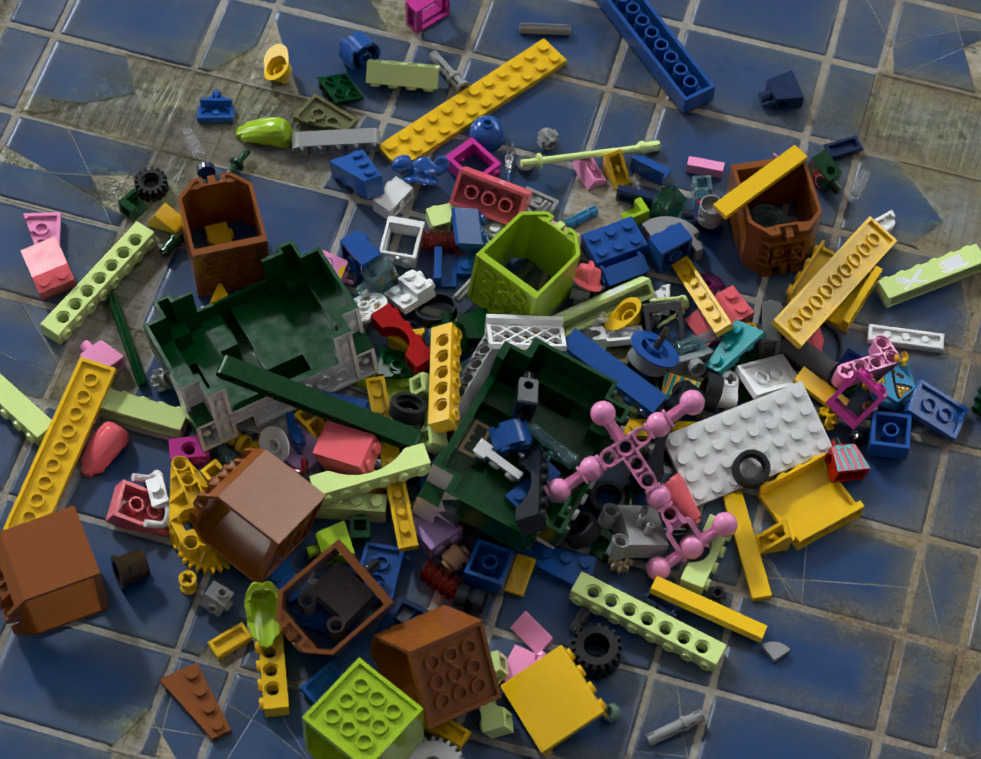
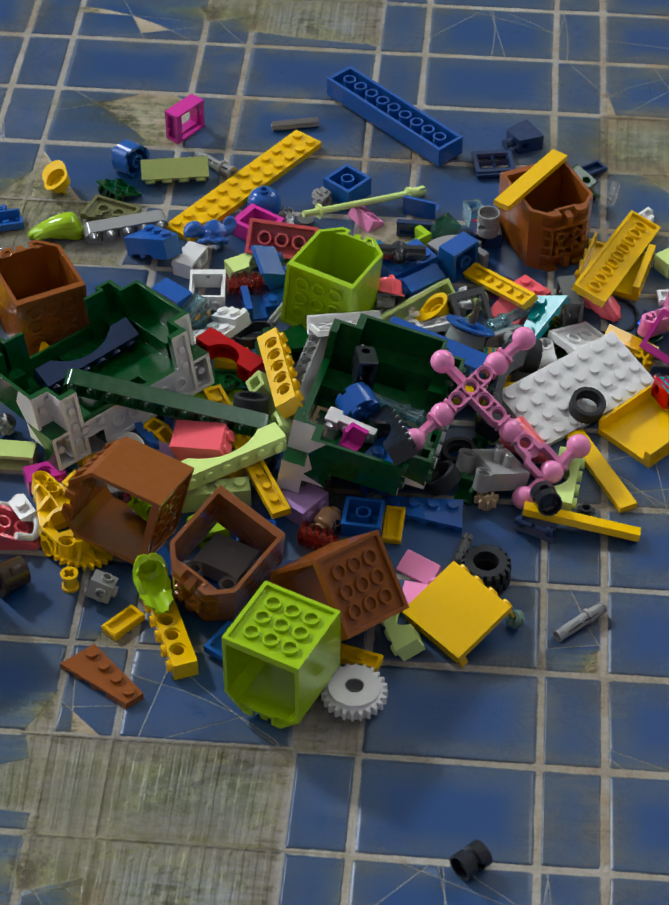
camera: 10 degrees left, 15 degrees down
(219, 338) = (120, 336): none -> dark blue arch
(496, 479) = (353, 437): none -> dark pink panel
(578, 128) = (348, 184): none -> blue brick
(606, 237) = (400, 252): none -> black piece
(615, 168) = (389, 209): yellow slope -> none
(642, 612) = (527, 539): yellowish green brick -> none
(675, 582) = (546, 498): none -> black wheel
(705, 167) = (458, 199): bright pink slope -> none
(742, 120) = (492, 162): none -> dark blue piece
(774, 538) = (627, 457): yellow slope -> none
(775, 650) = (654, 546): light grey tile -> none
(811, 358) = (610, 315): dark grey piece -> none

